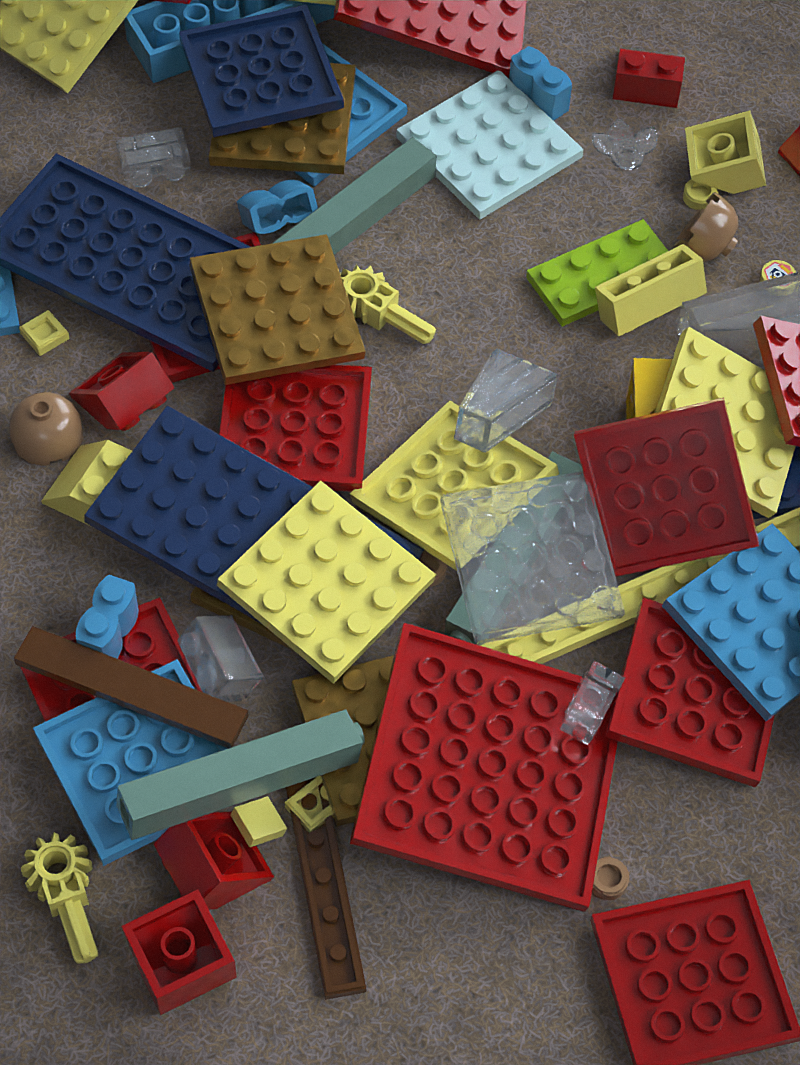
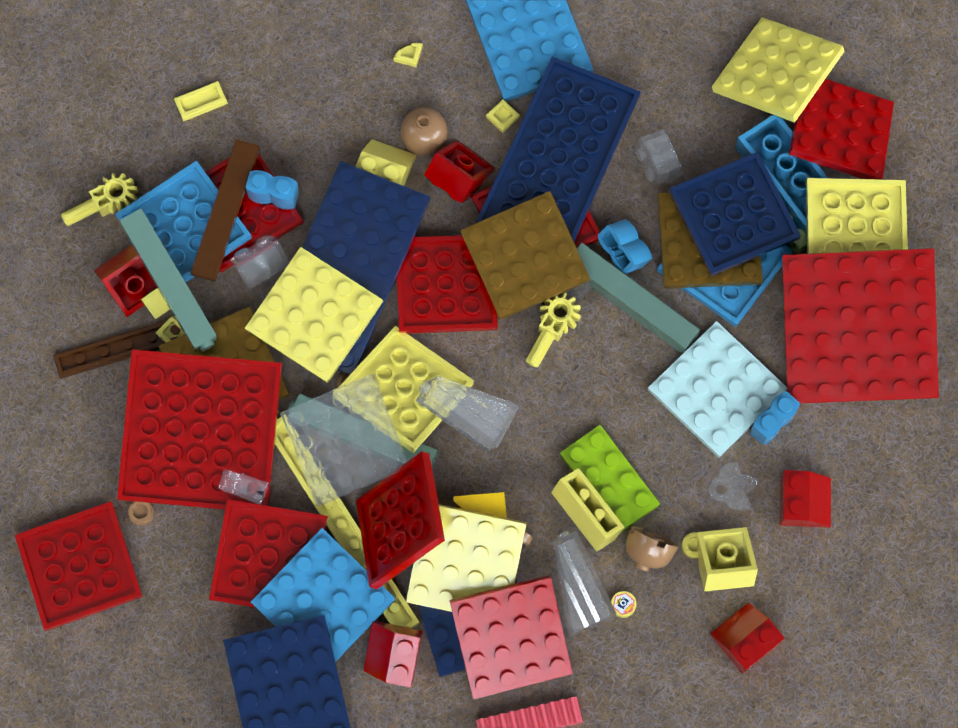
camera: 85 degrees right, 15 degrees up
(179, 951) = (66, 267): red slope -> none

